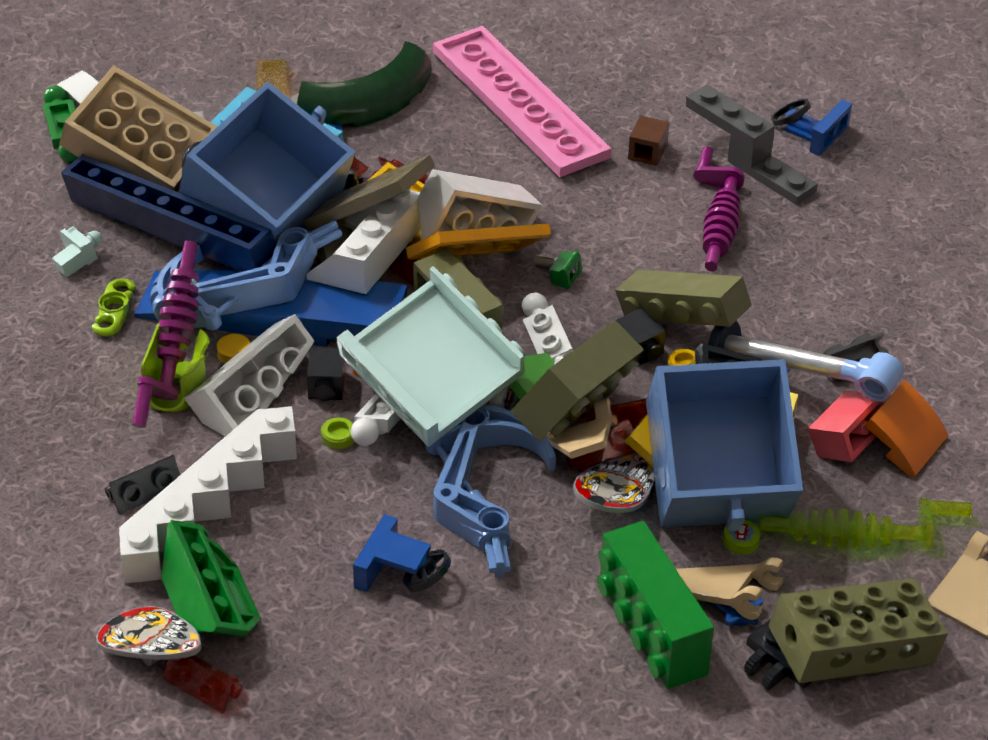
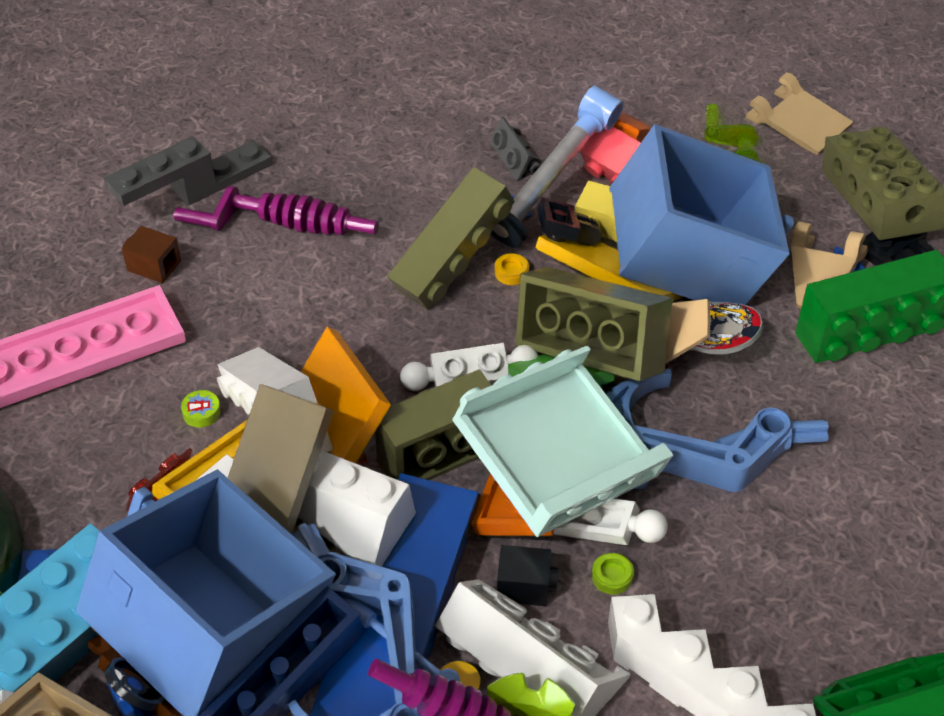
camera: 85 degrees left, 5 degrees up
(399, 552) = (819, 523): blue piece -> none
(562, 269) = (362, 344): green piece -> none
(645, 333) = (481, 292): black brick -> none
(819, 133) = (168, 124): blue piece -> none

